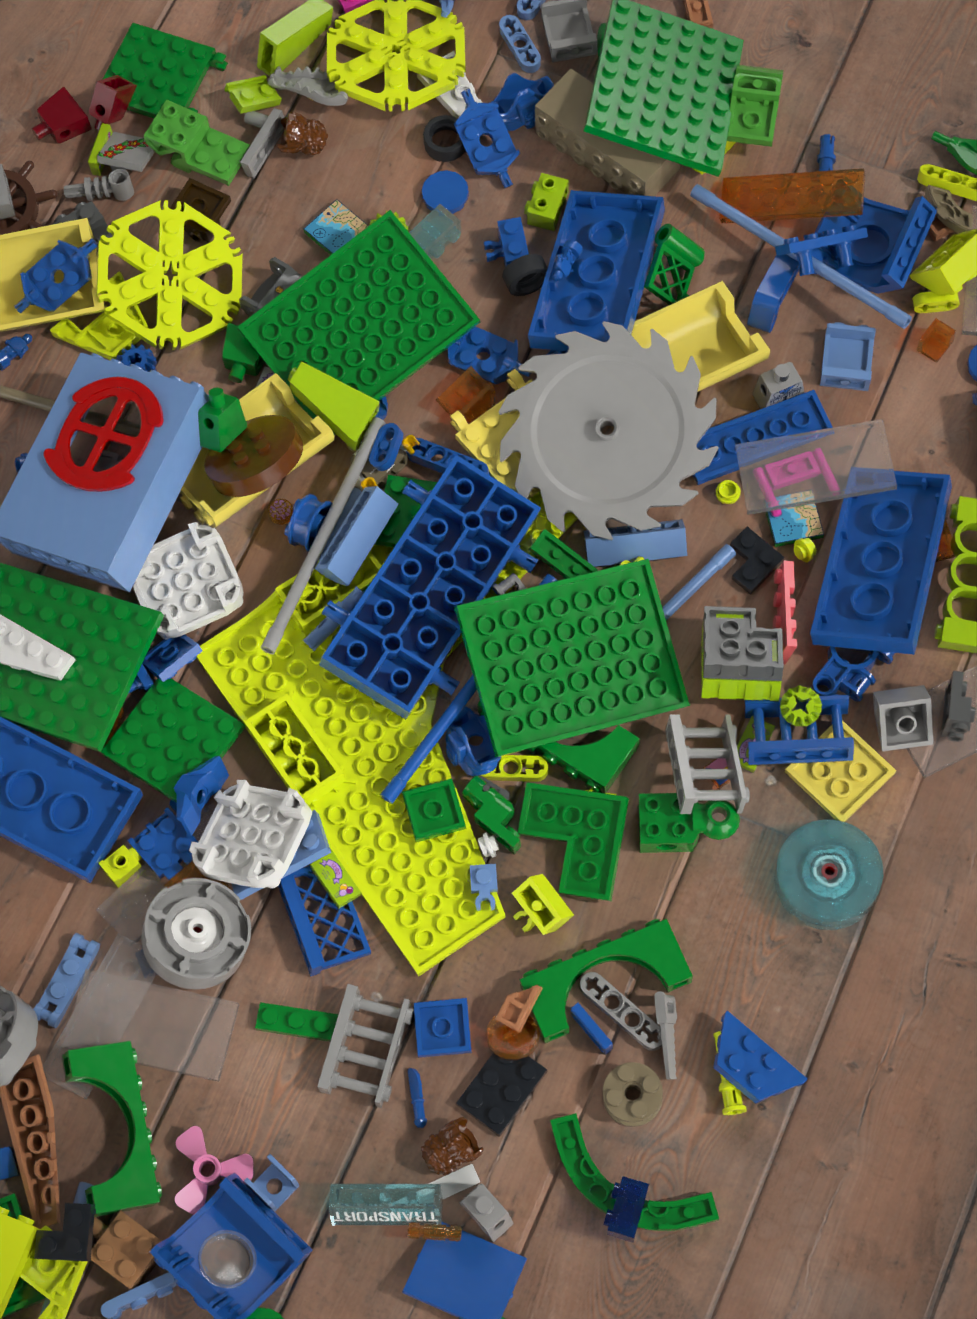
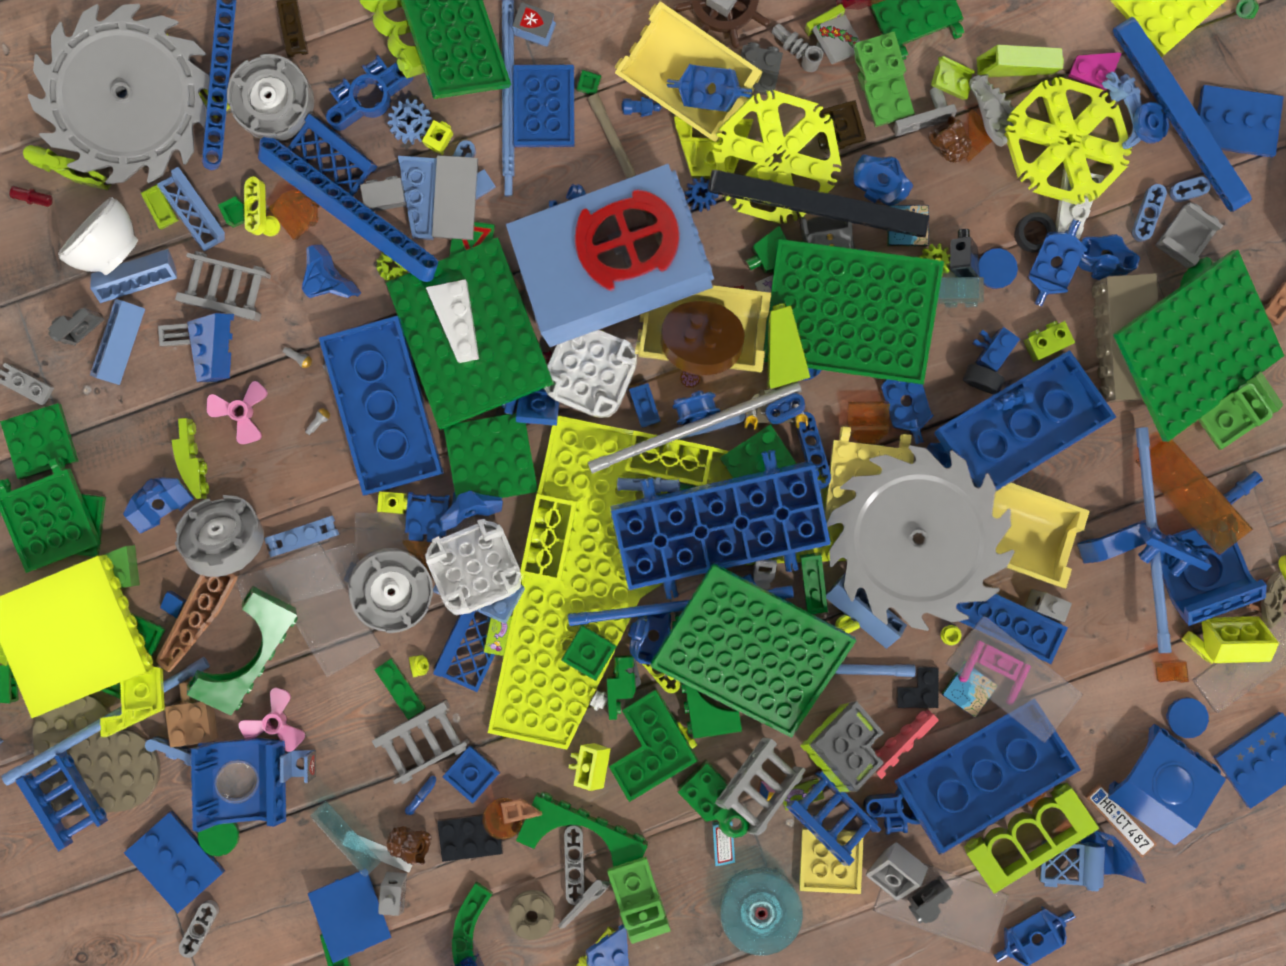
camera: 40 degrees right, 20 degrees up
(74, 1241) = (159, 695): black plate -> none
(220, 420) = (702, 298): green torso -> none
(240, 272) = (818, 203): none -> black beam
(262, 224) = (887, 189): none -> blue piece
(264, 568) = (644, 405): none -> blue plate
(292, 983) = (419, 665): none -> neon yellow plate
(321, 112) = (977, 135): none -> clear orange tile
(357, 535) = (710, 449): medium blue brick -> none
(404, 200) = (964, 255): none -> black torso
(434, 1231) = (356, 878): clear orange axle -> none
(483, 882) = (573, 721): medium blue plate -> none
(591, 1028) = (547, 858): blue tile -> none
(679, 252) = (1088, 461): green piece -> none
(713, 972) = (638, 900): none -> bright green piece
(732, 856) = (723, 846): none -> slope
(798, 717) = (842, 801): lime gear -> none
(804, 549) = (954, 716): neon yellow plate -> none
(847, 356) = (1110, 626): medium blue panel -> none

